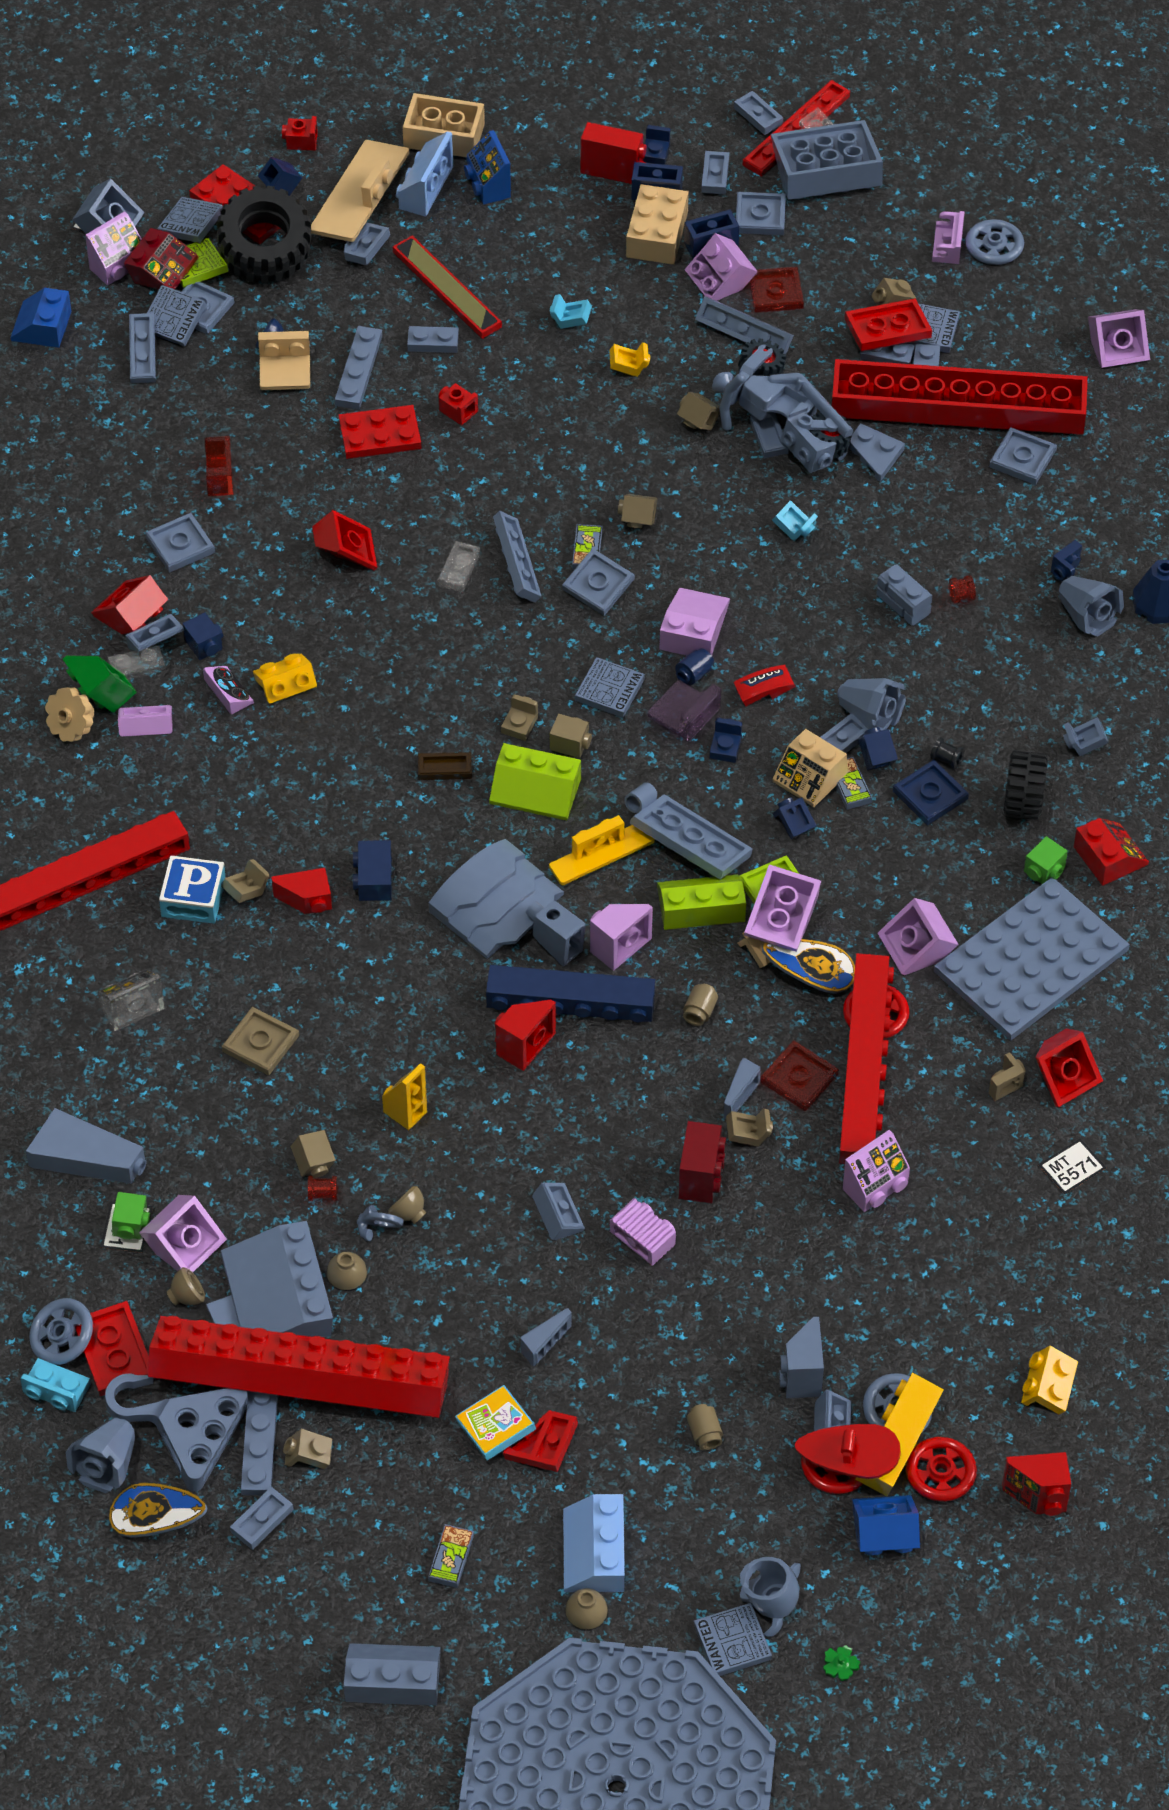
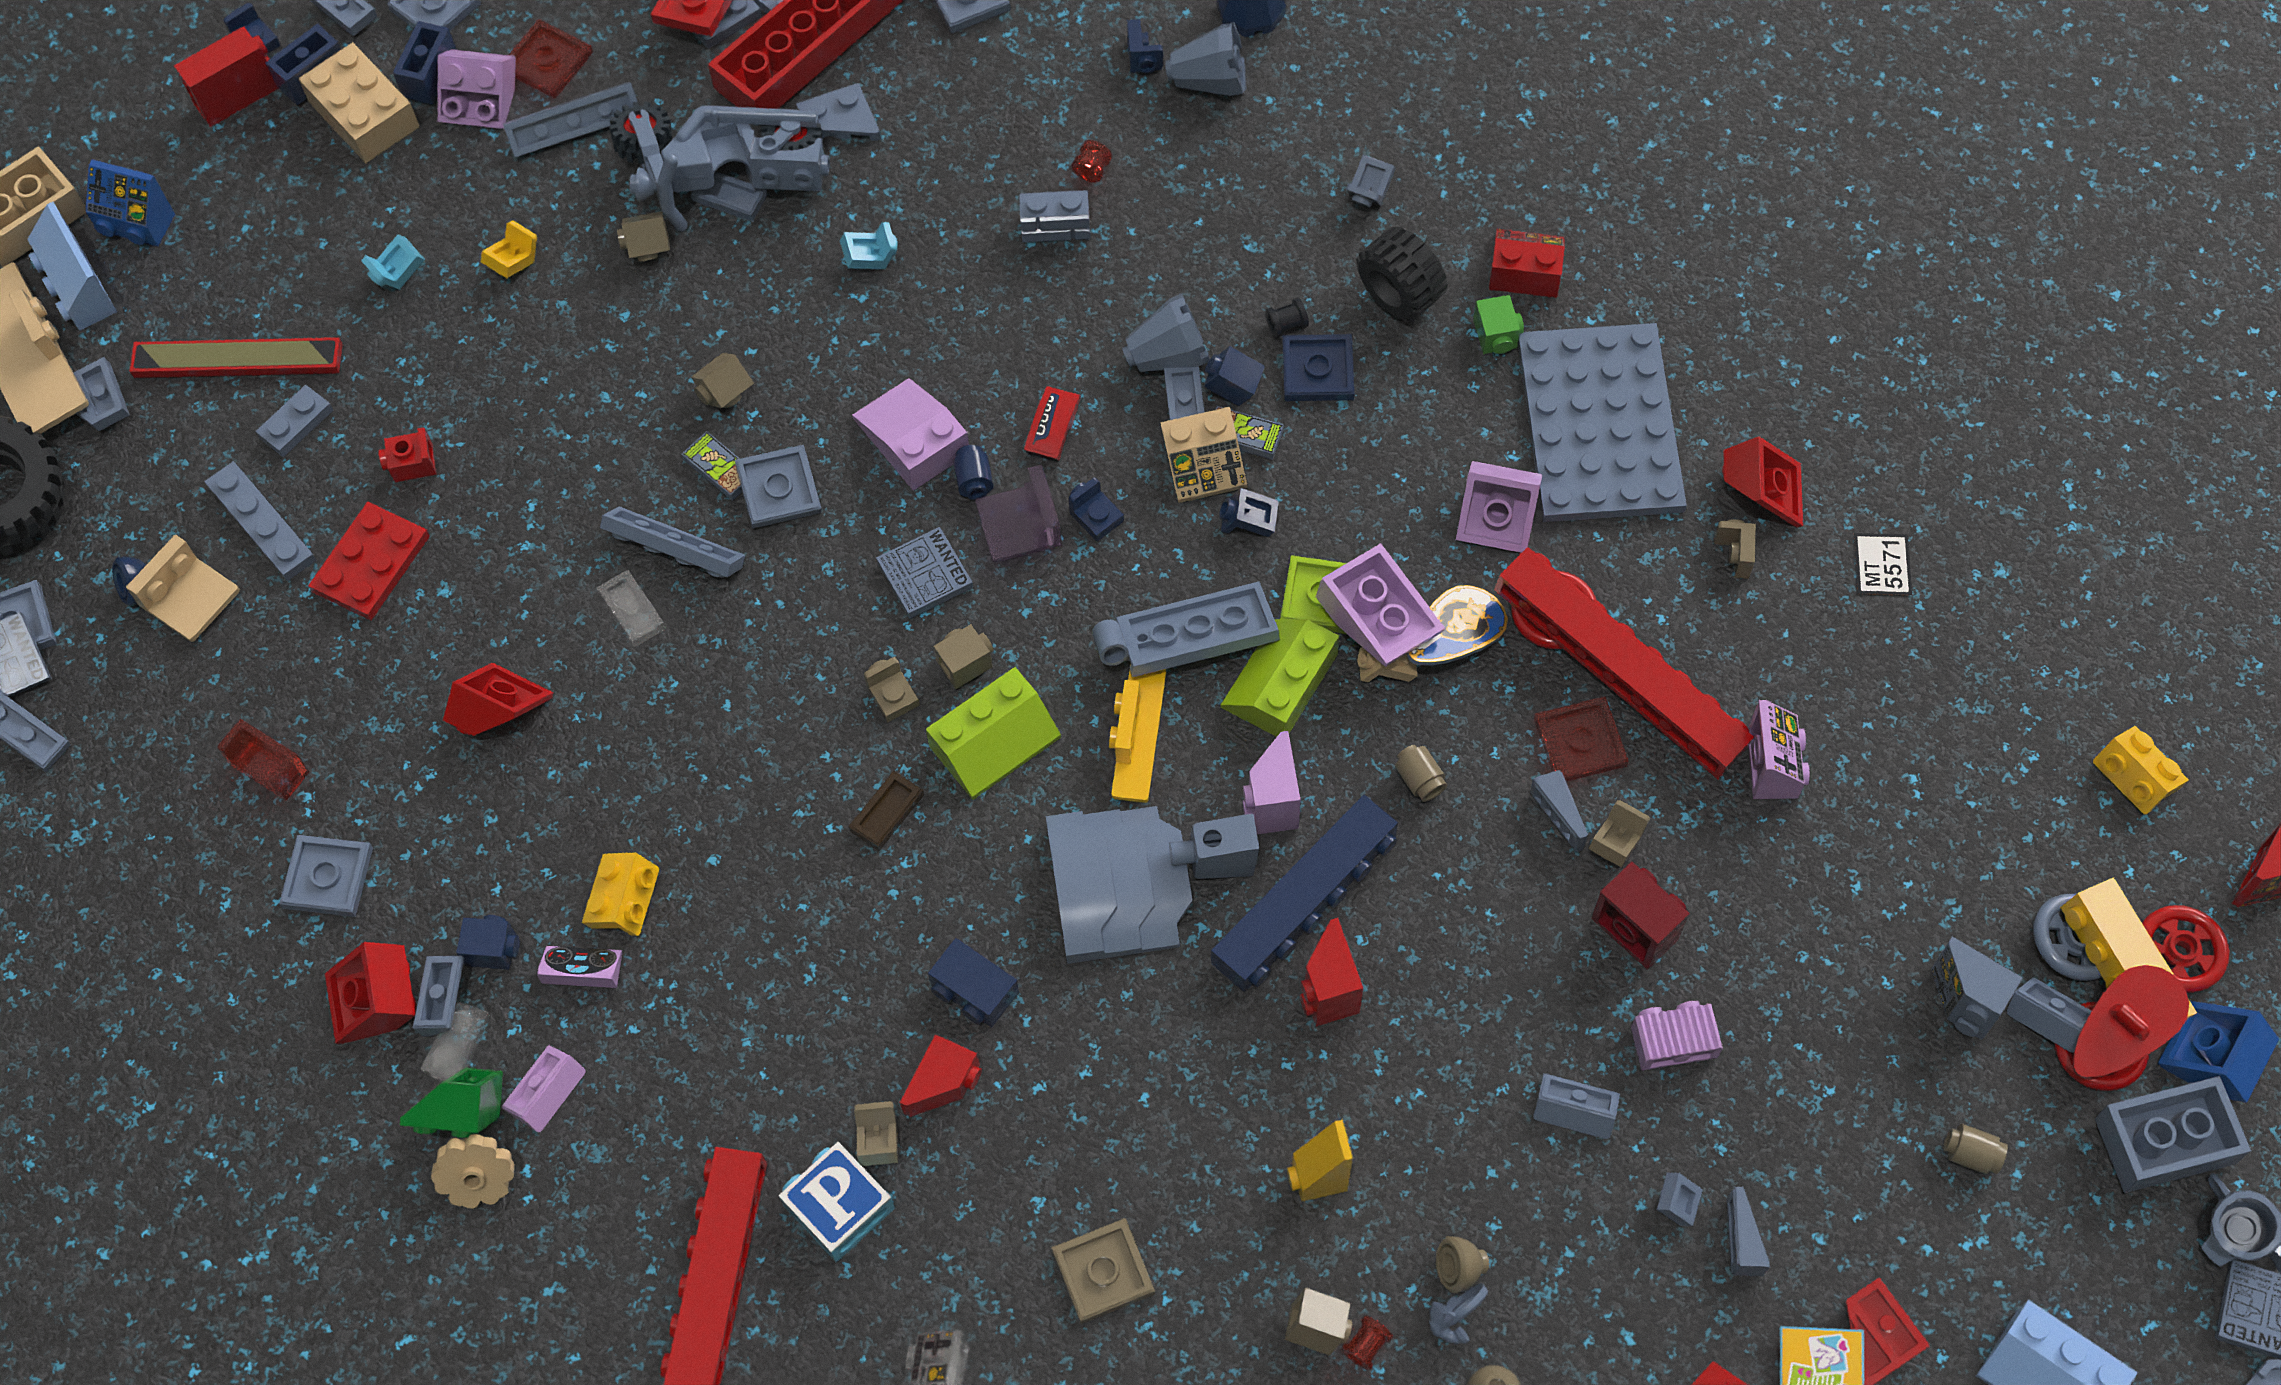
camera: 50 degrees left, 10 degrees up
(540, 1291) = (1679, 1199): none -> sand blue plate
(801, 1520) = (2172, 1134): none -> sand blue brick

